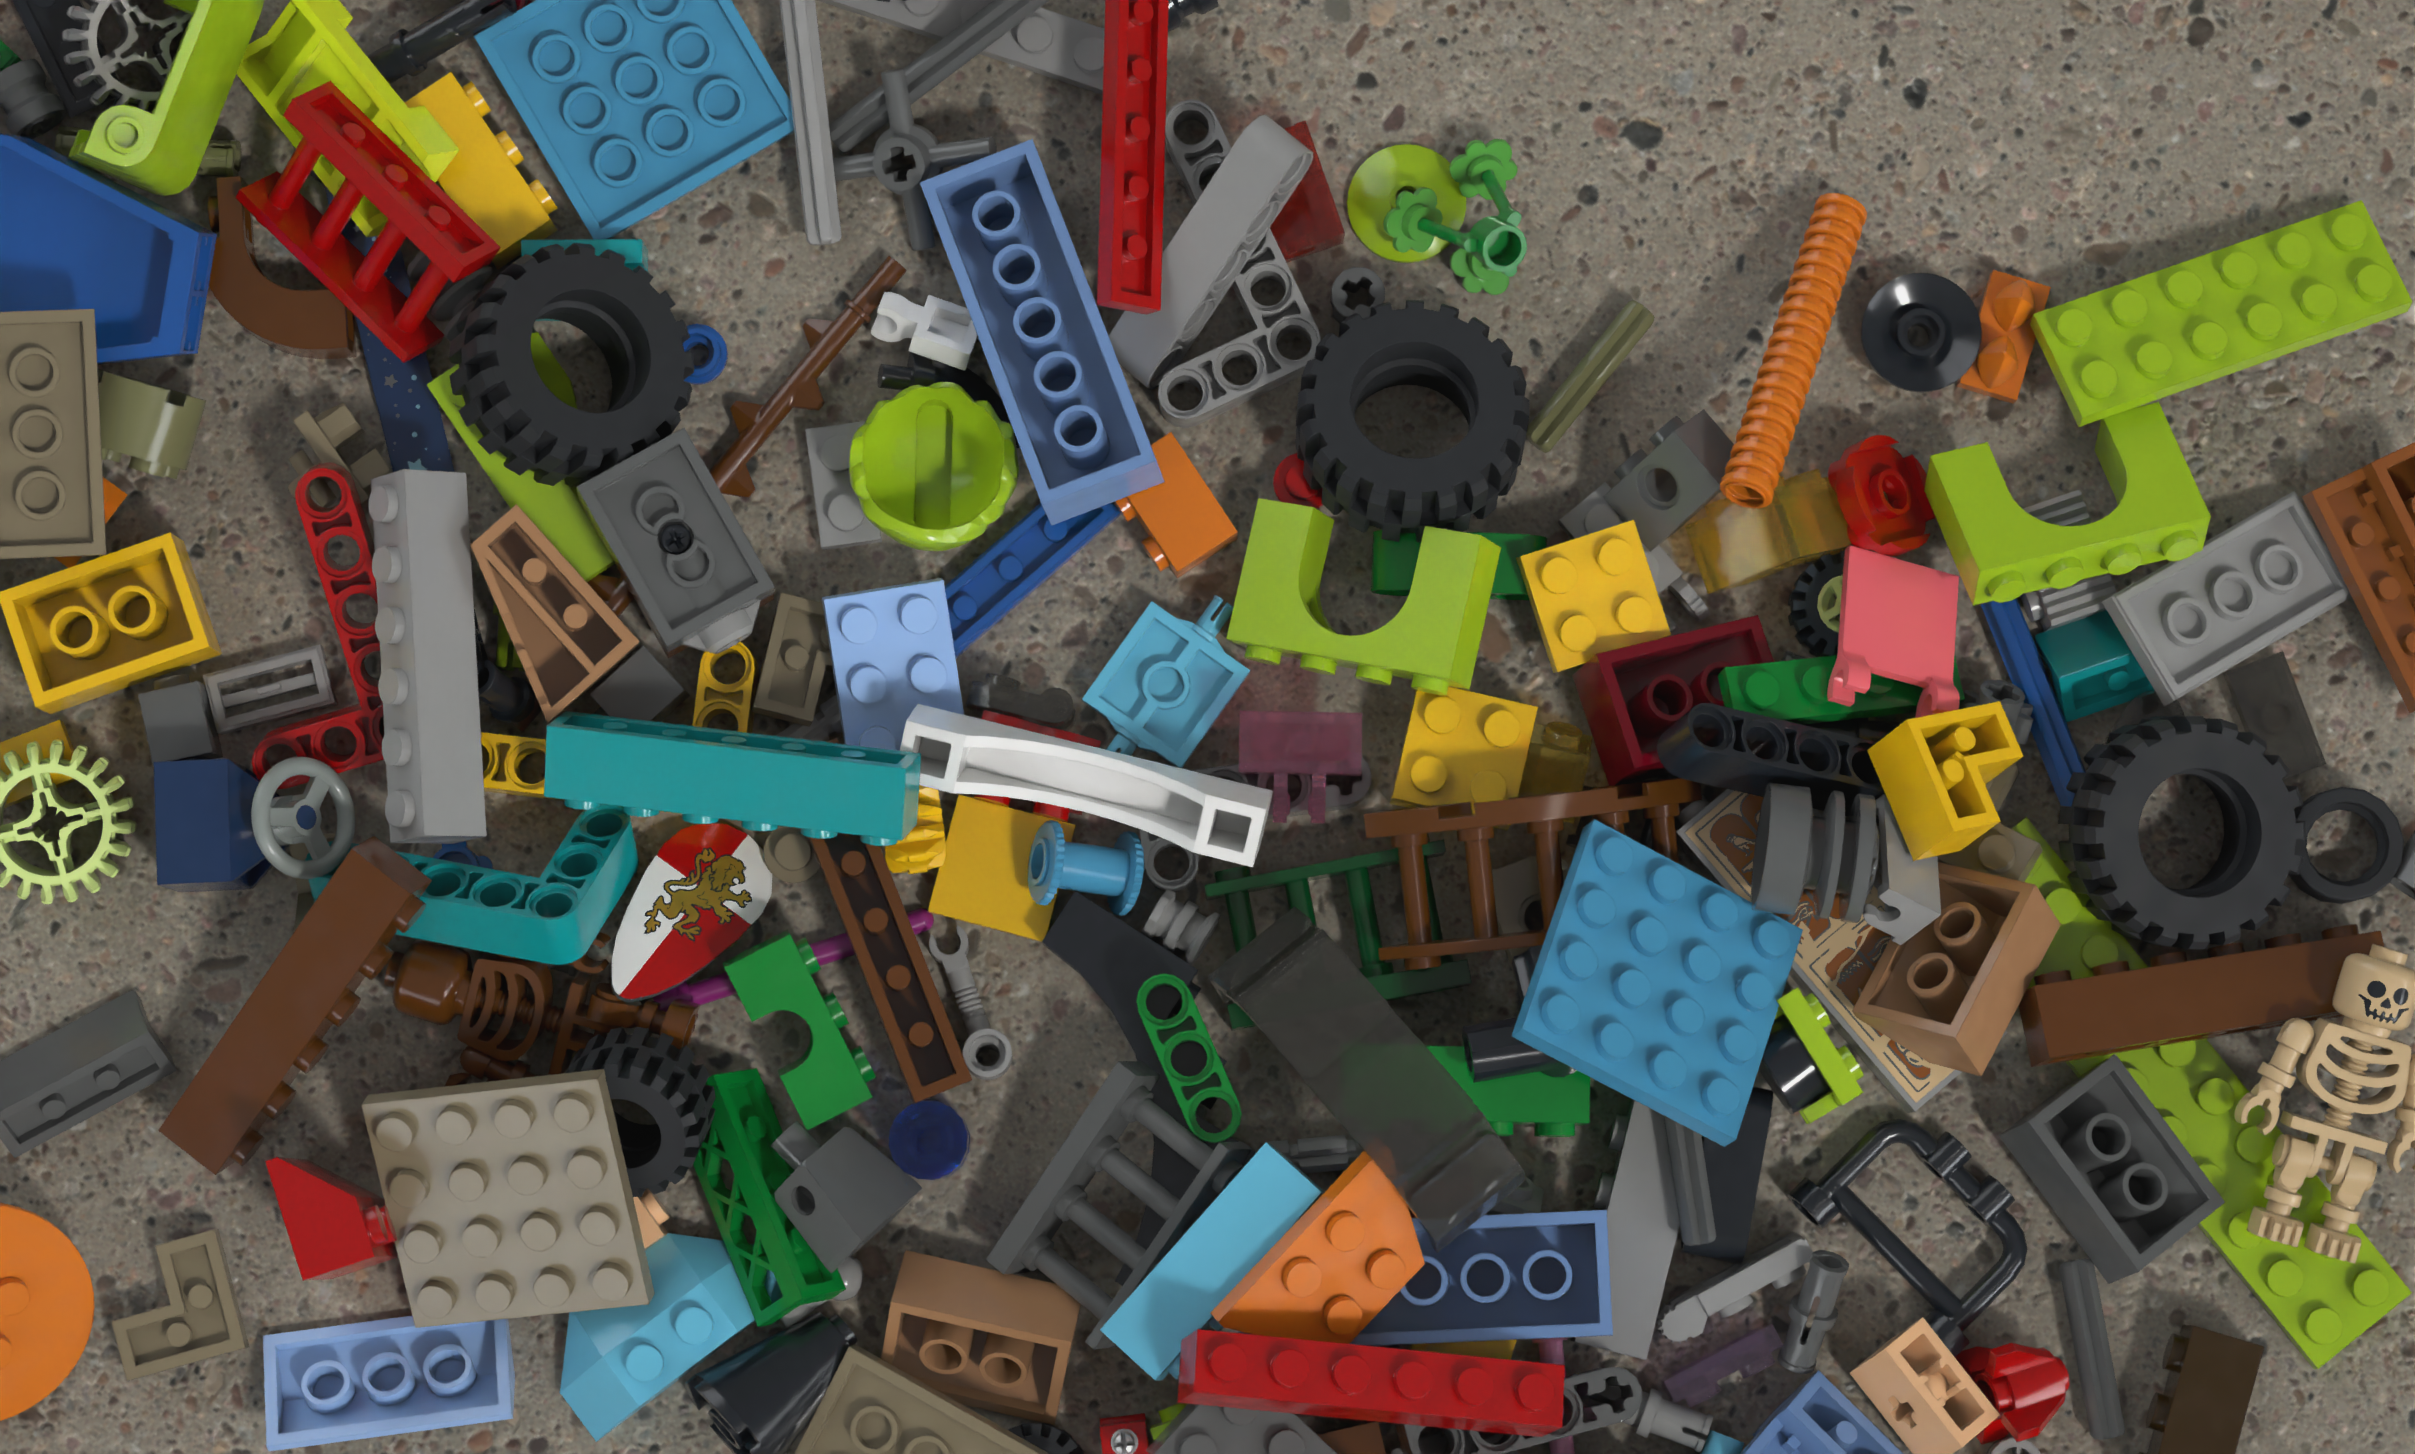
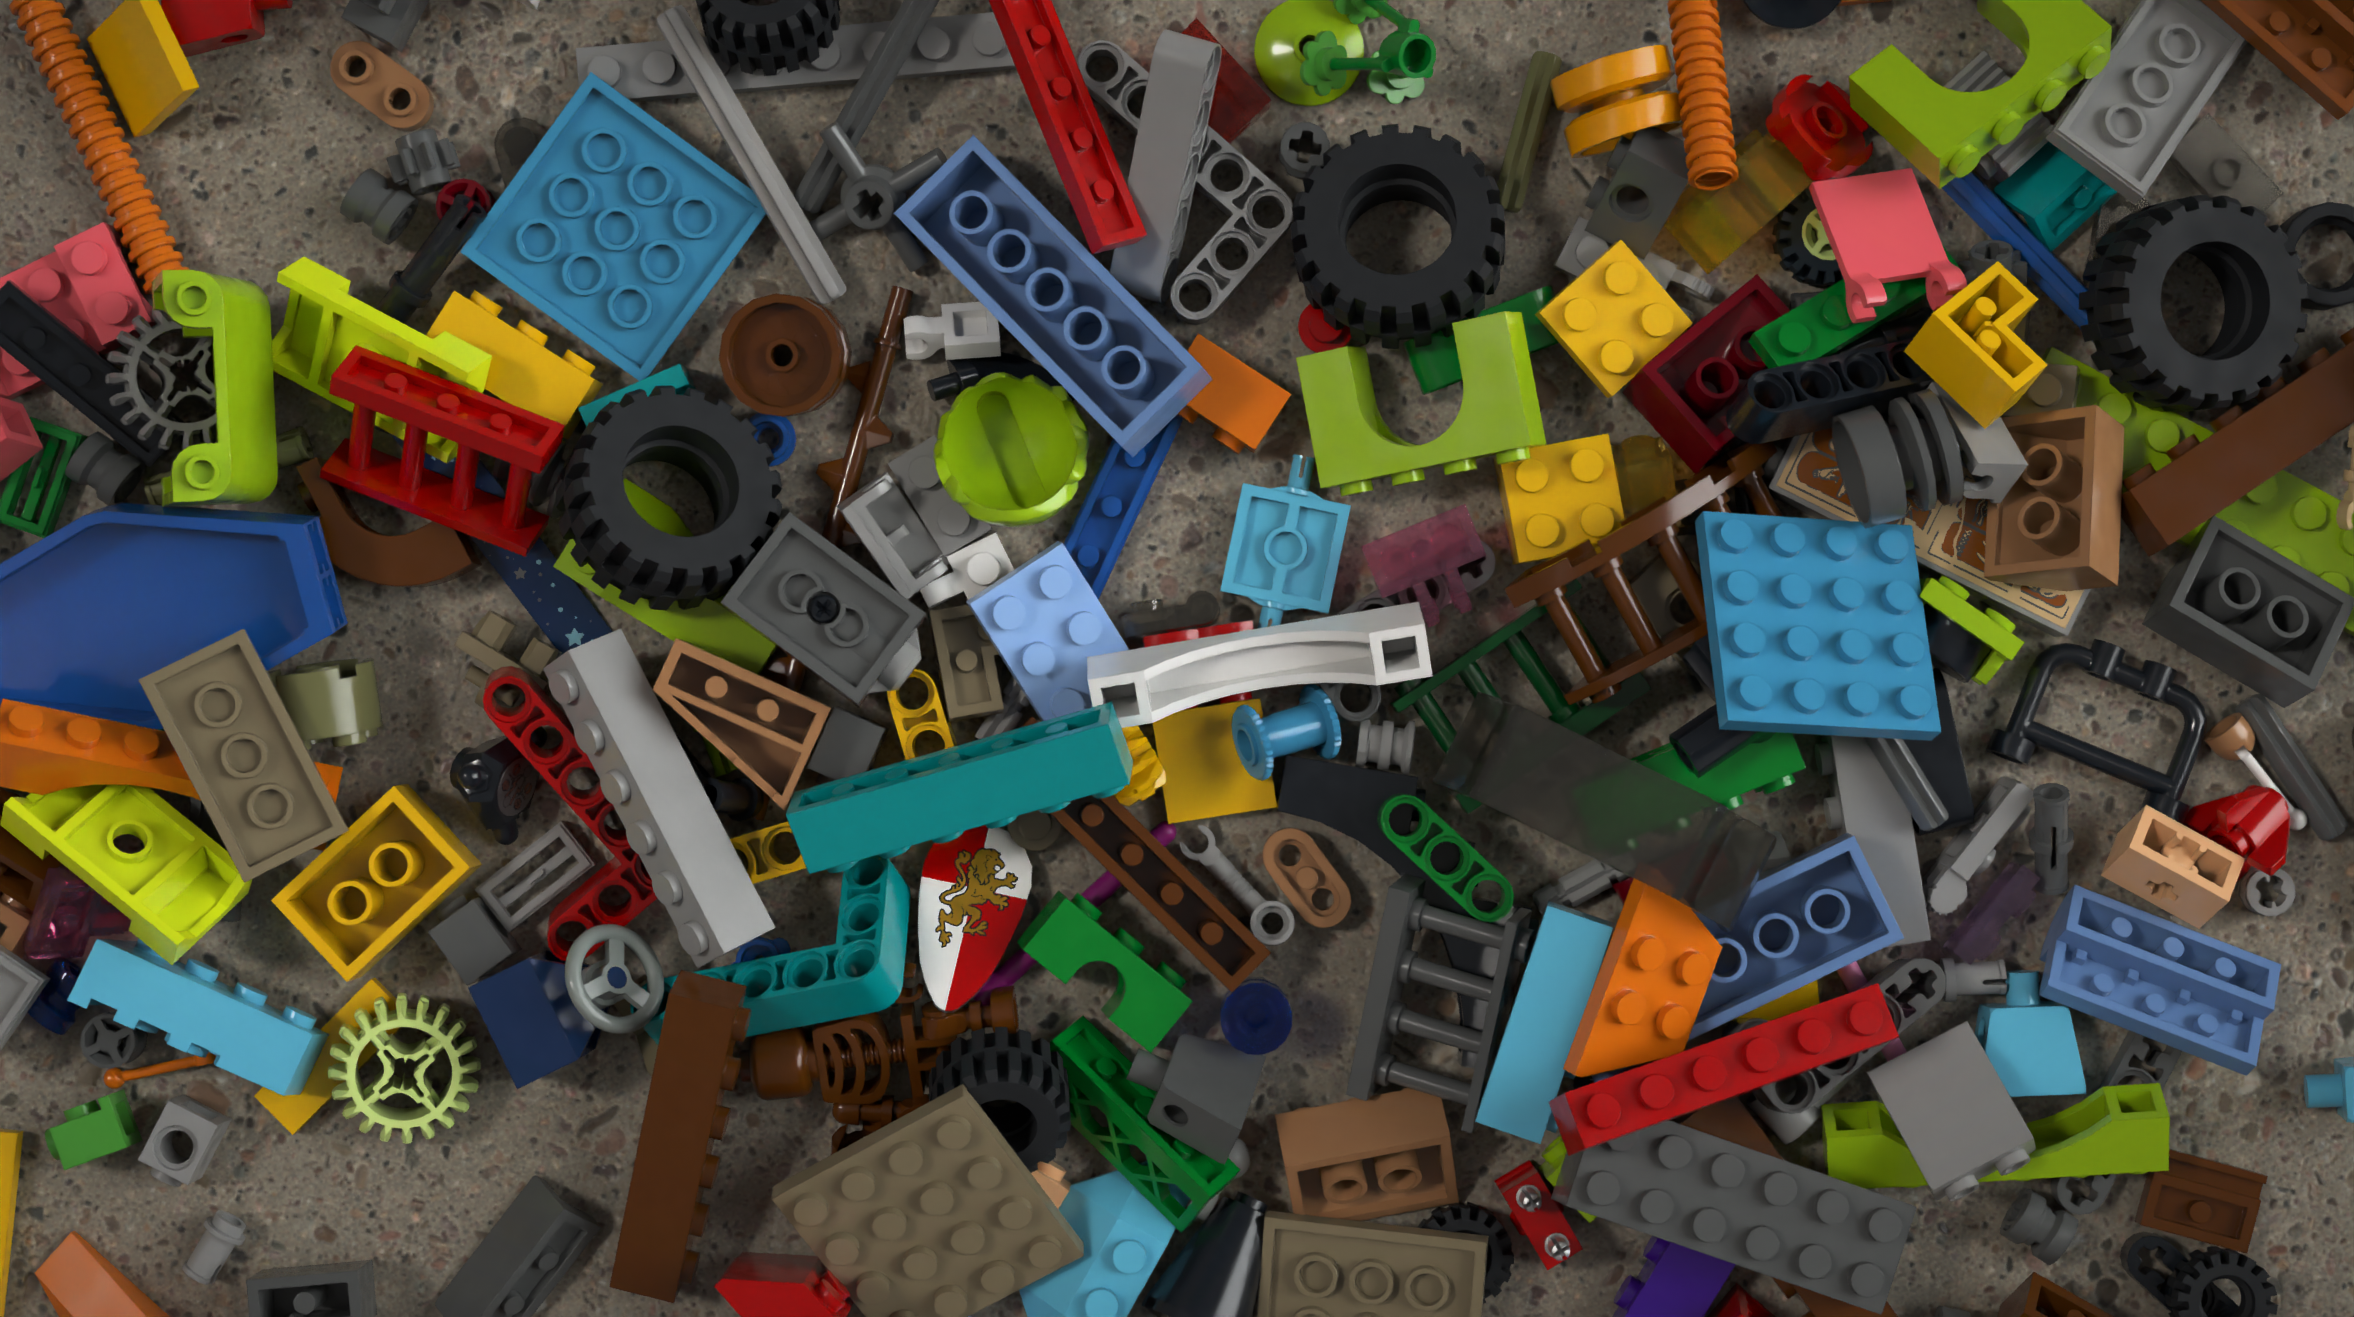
camera: 25 degrees left, 5 degrees up
(274, 578) = (497, 783): none -> black rock
(779, 502) = (894, 536): none -> light grey hinge
(786, 283) = (818, 349): none -> reddish brown wheel
(844, 571) = (973, 569): none -> white plate
(1043, 1025) = (1306, 876): none -> medium nougat plate
(1688, 377) = (1616, 94): none -> light orange wheel
(2044, 1296) = (2234, 740): none -> medium nougat hinge

